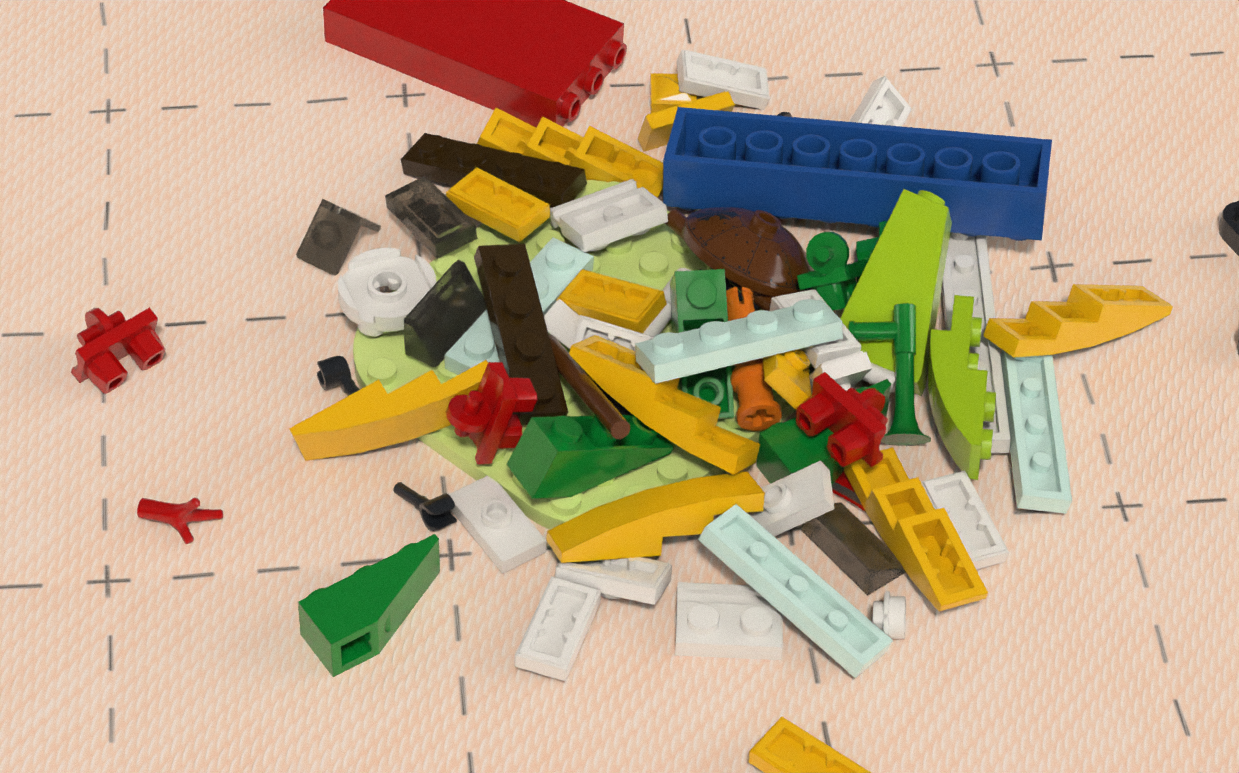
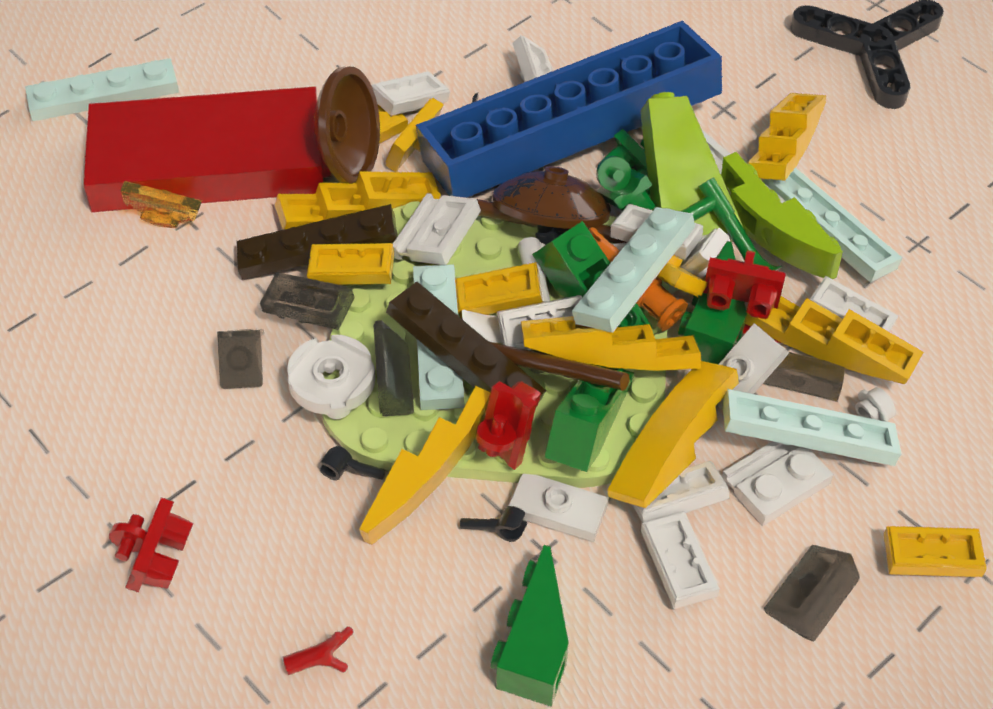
camera: 35 degrees left, 5 degrees up
(381, 63) = (160, 206): none -> clear yellow plate
(610, 72) = (347, 124): none -> reddish brown dish
(662, 733) = (814, 591): none -> clear smoke slope

